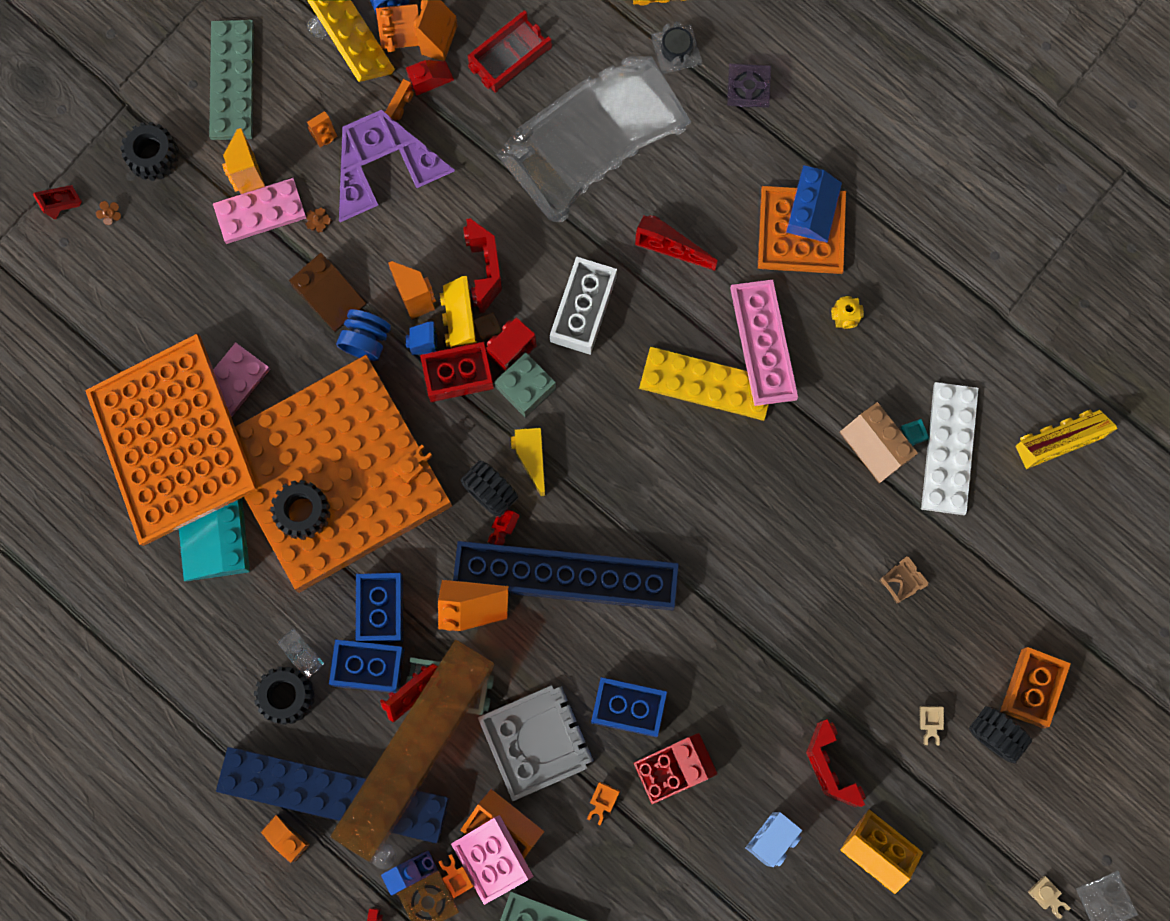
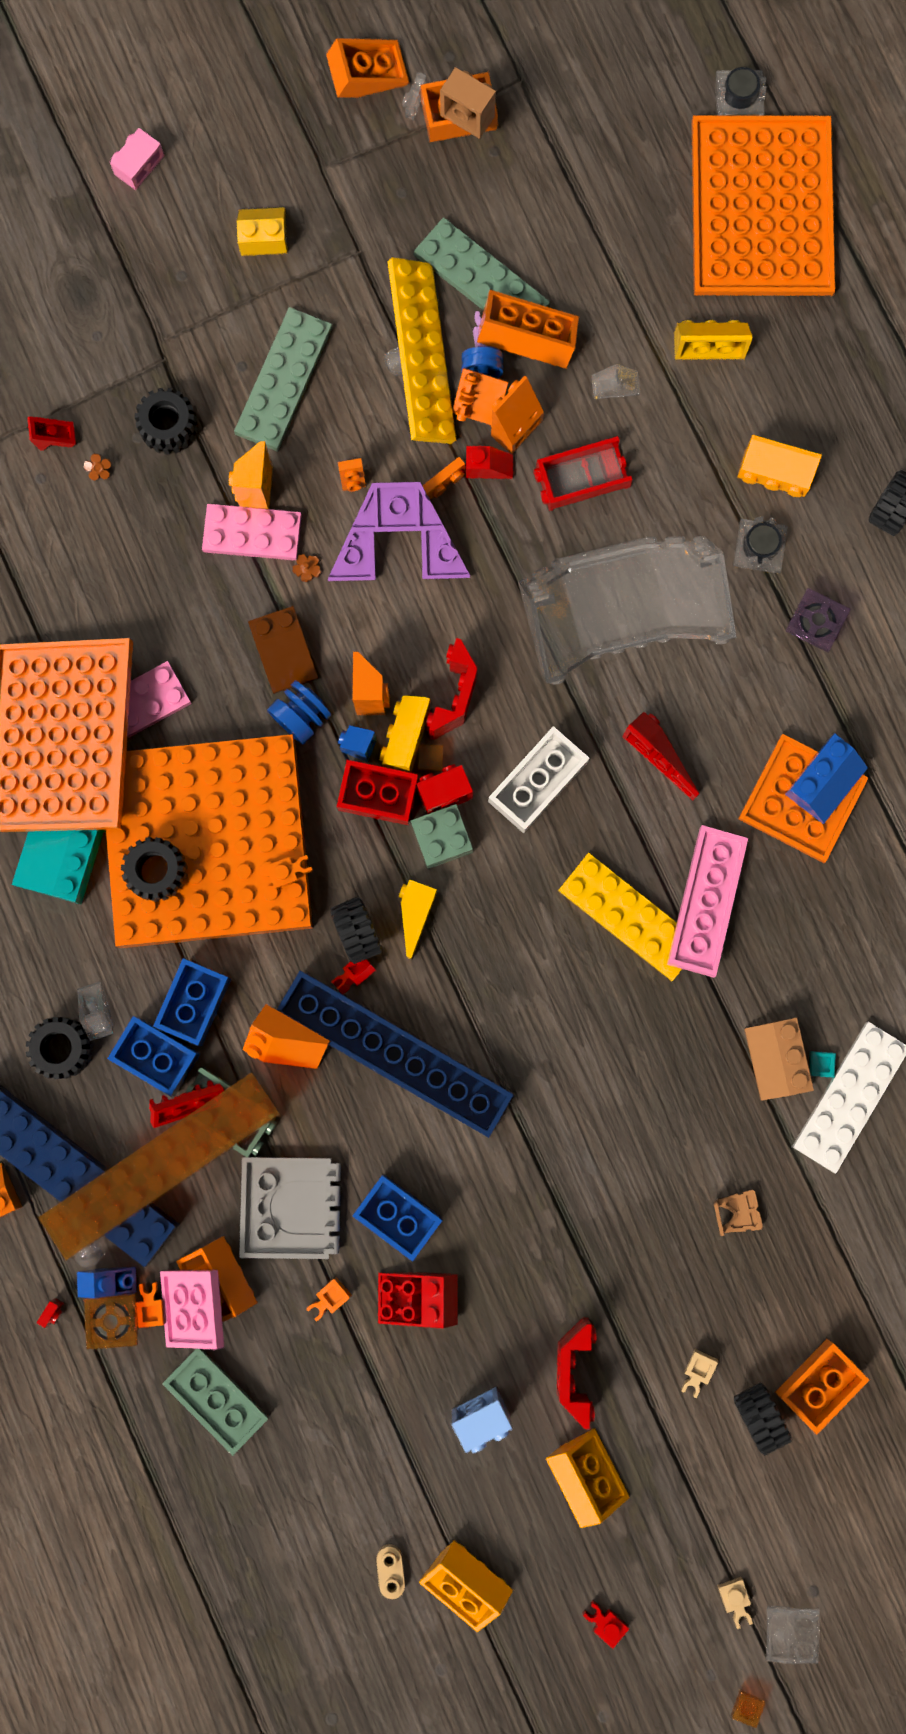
camera: 25 degrees right, 5 degrees up
(847, 319) = (803, 913): yellow brick -> none

